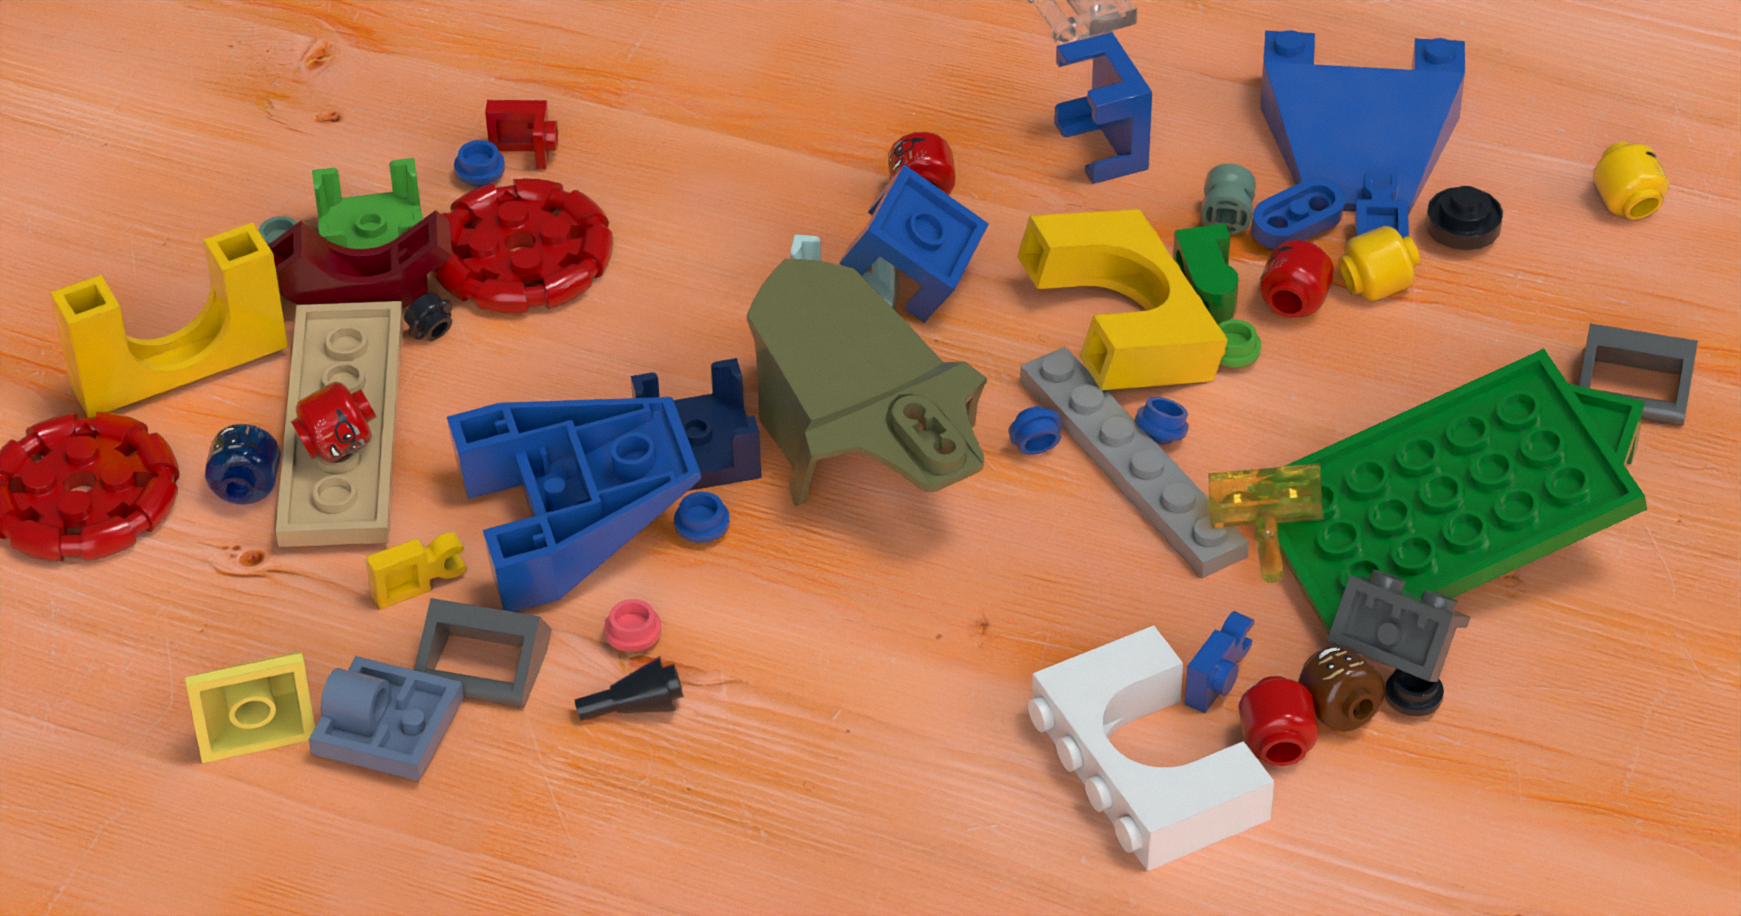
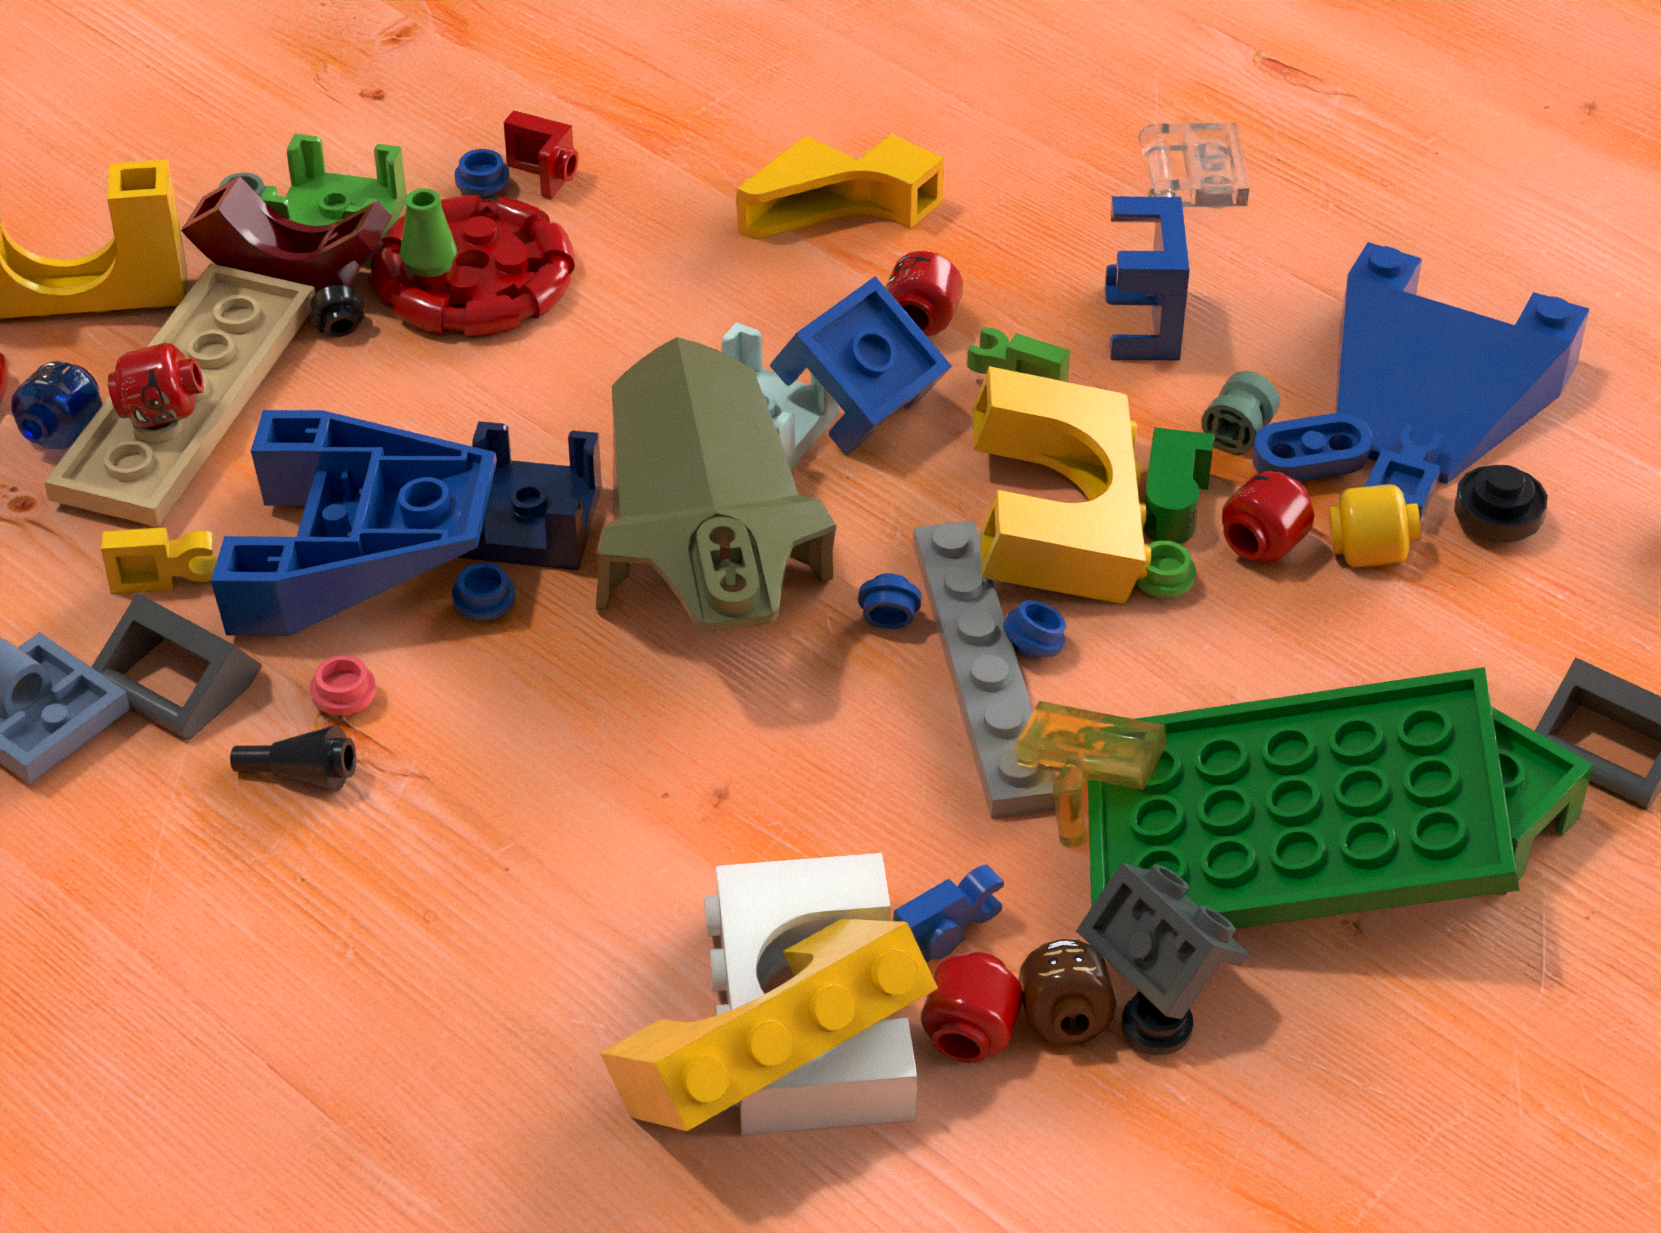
camera: 20 degrees right, 0 degrees up
(487, 232) = (426, 236): none -> bright green cone
(781, 95) = (821, 184): none -> yellow arch
(1008, 205) = (1020, 355): none -> bright green plate
(1188, 736) = (840, 986): none -> yellow arch

